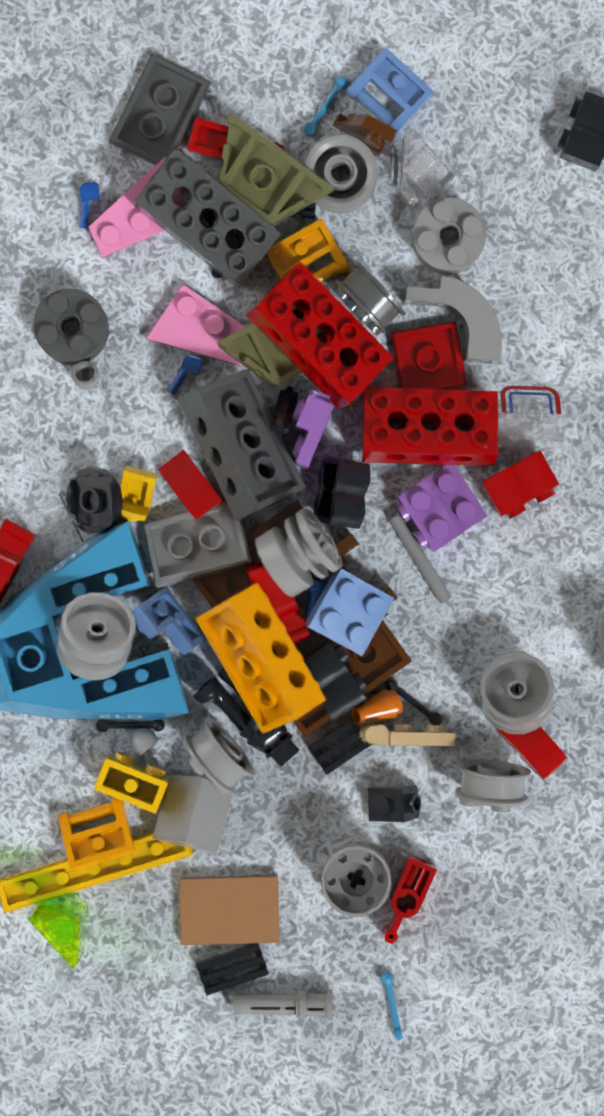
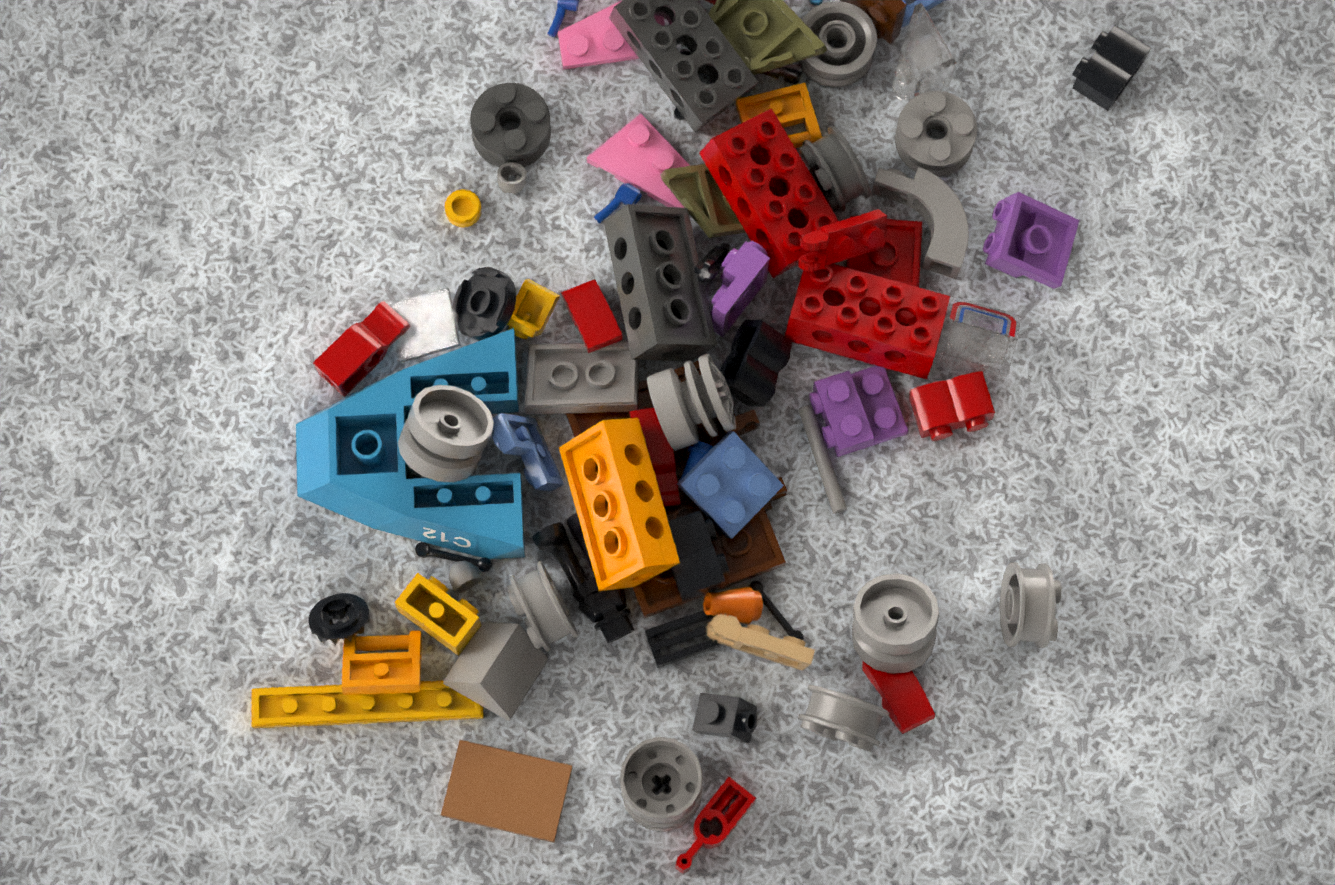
camera: 10 degrees right, 15 degrees down
(45, 794) = (338, 607): none -> black gear
(50, 412) = (463, 208): none -> yellow tile
(63, 928) = (318, 753): clear neon green slope -> none
(237, 980) = (458, 861): black tile -> none
(392, 367) = (843, 240): none -> red hinge
(554, 315) = (1030, 240): none -> medium lavender plate

